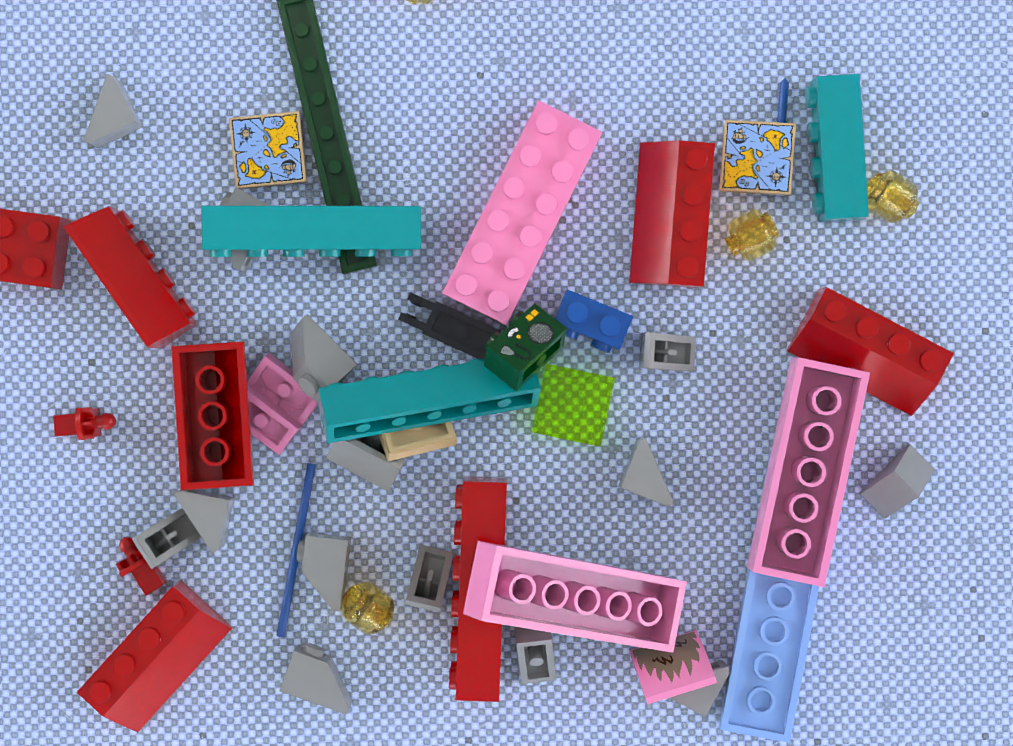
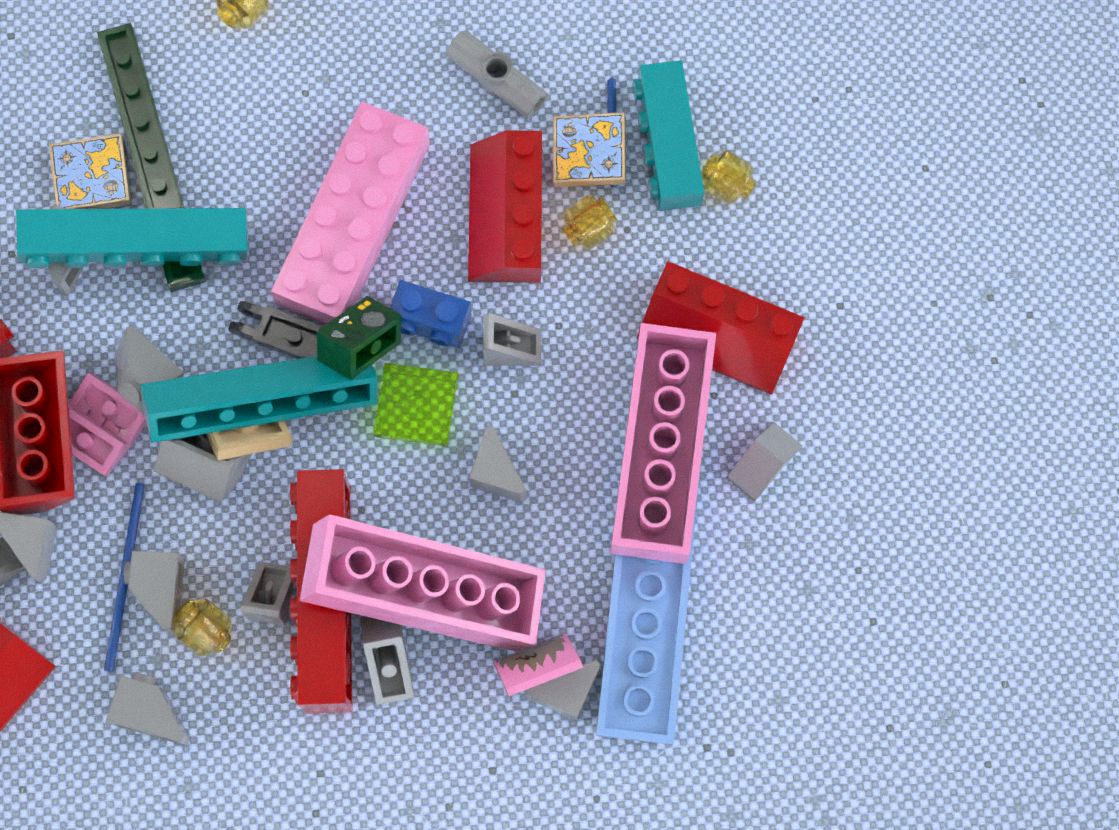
camera: 10 degrees left, 15 degrees down
(655, 55) = (512, 87): none -> light grey piece

